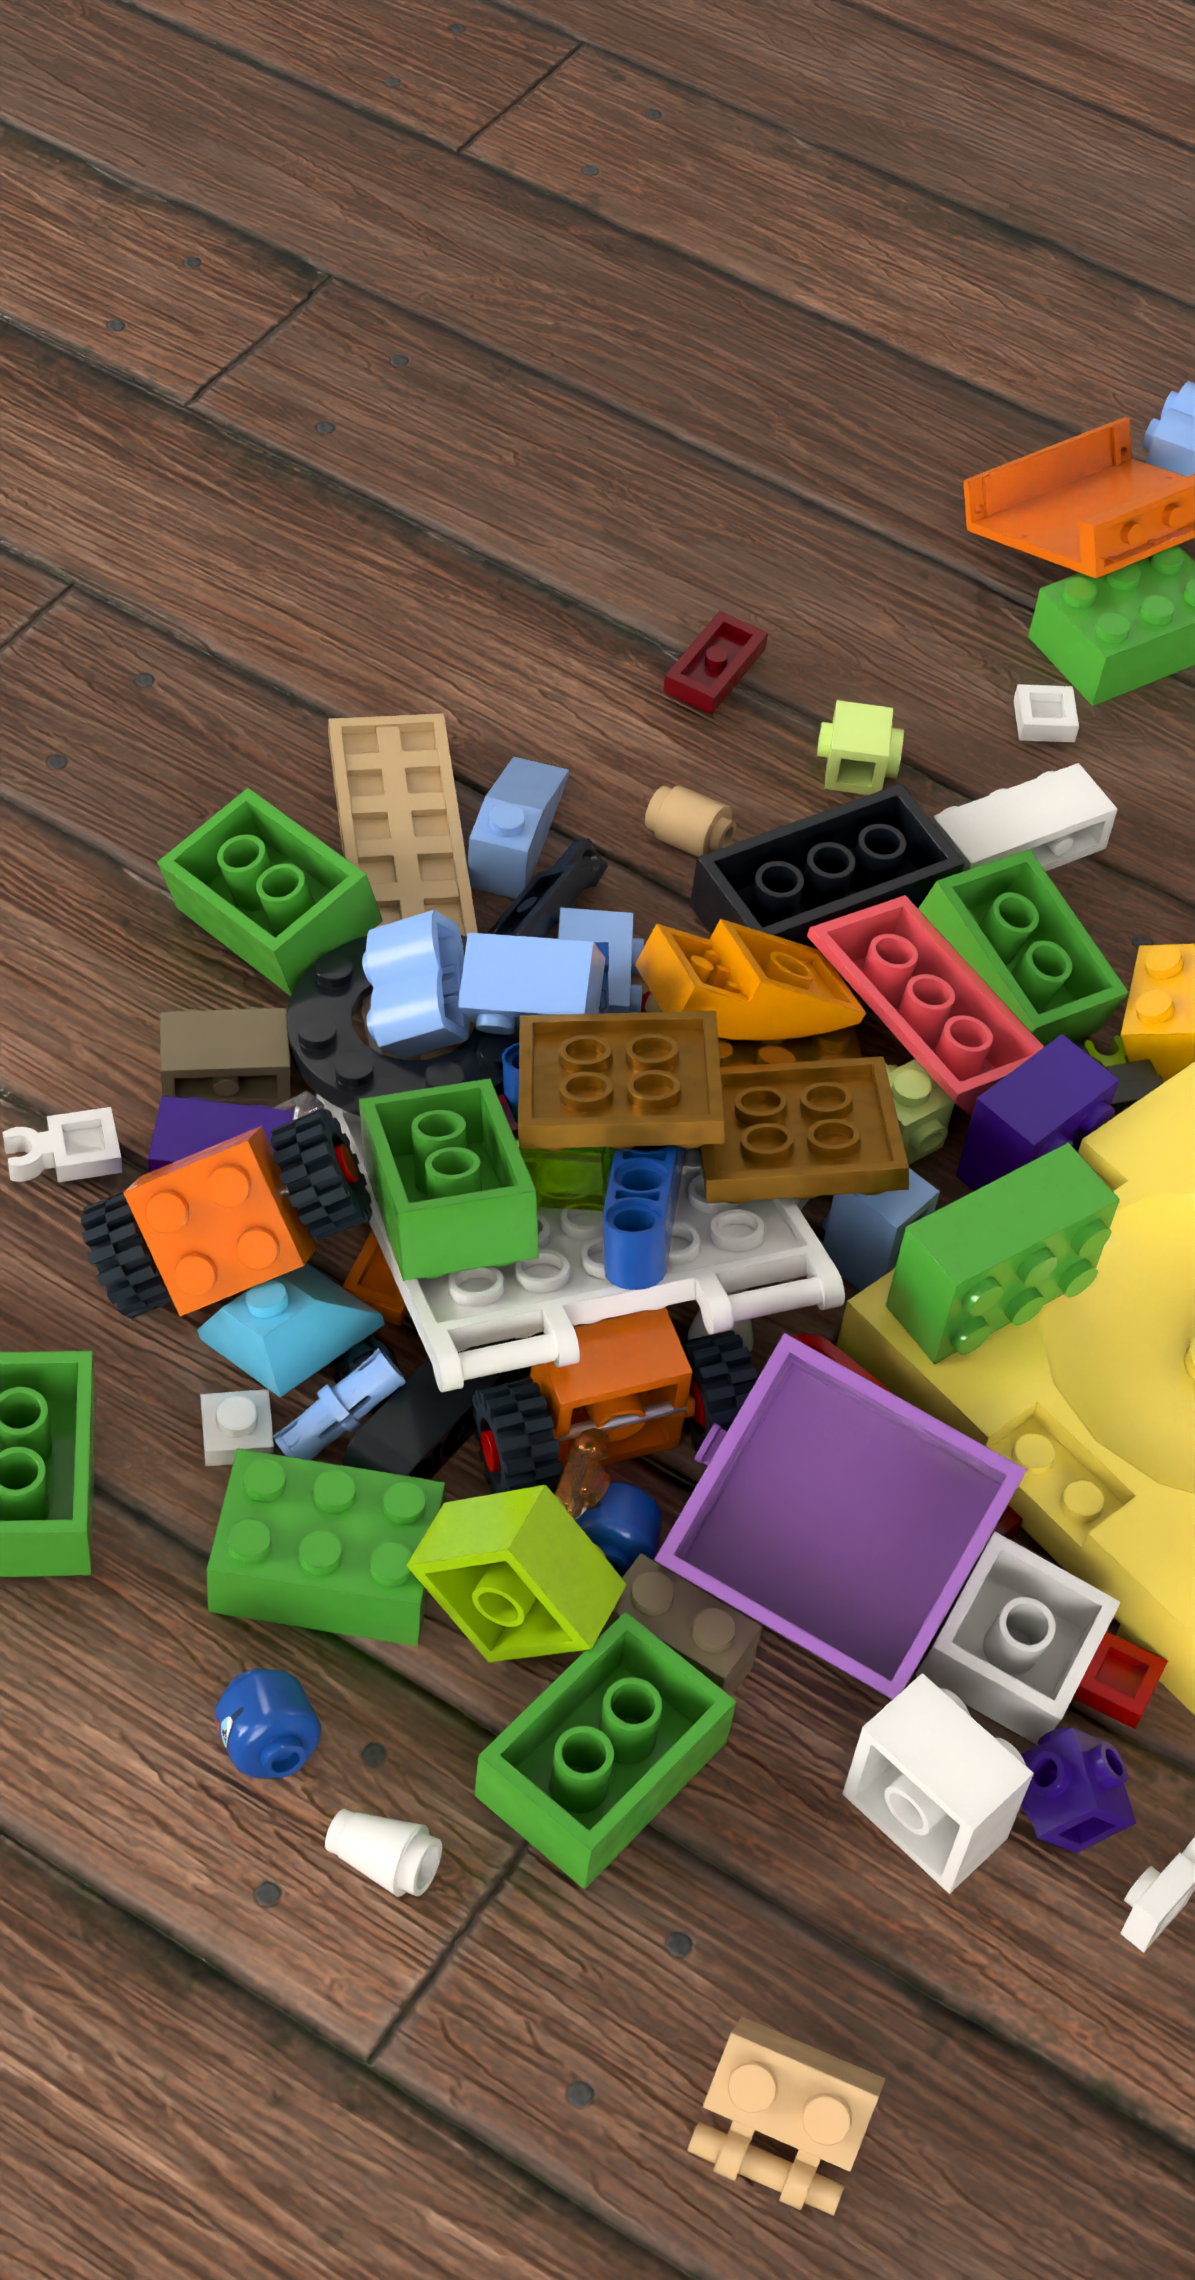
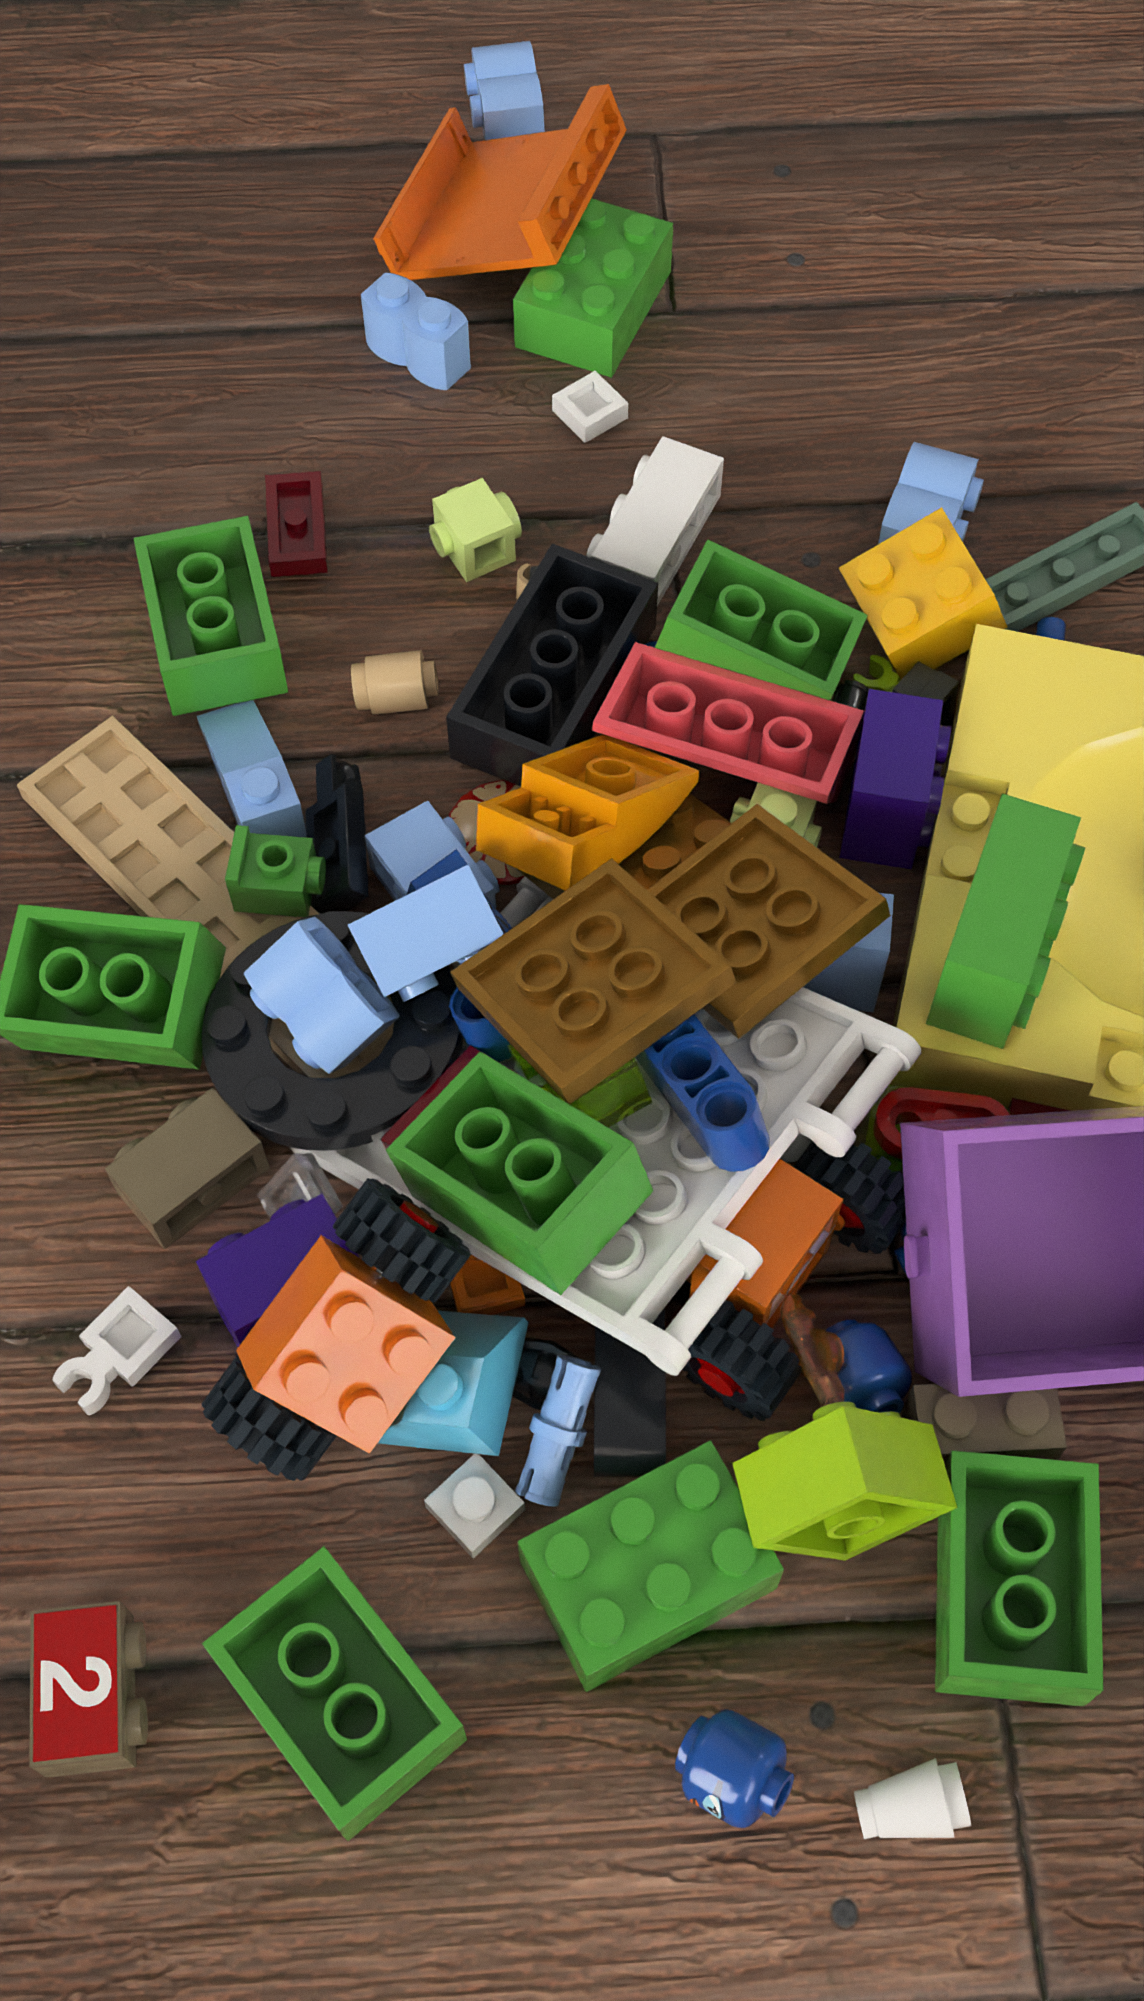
camera: 30 degrees left, 10 degrees up
(463, 887) = (273, 873): none -> bright green brick
(580, 684) = (210, 616): none -> bright green brick
(943, 573) = (416, 331): none -> light blue brick

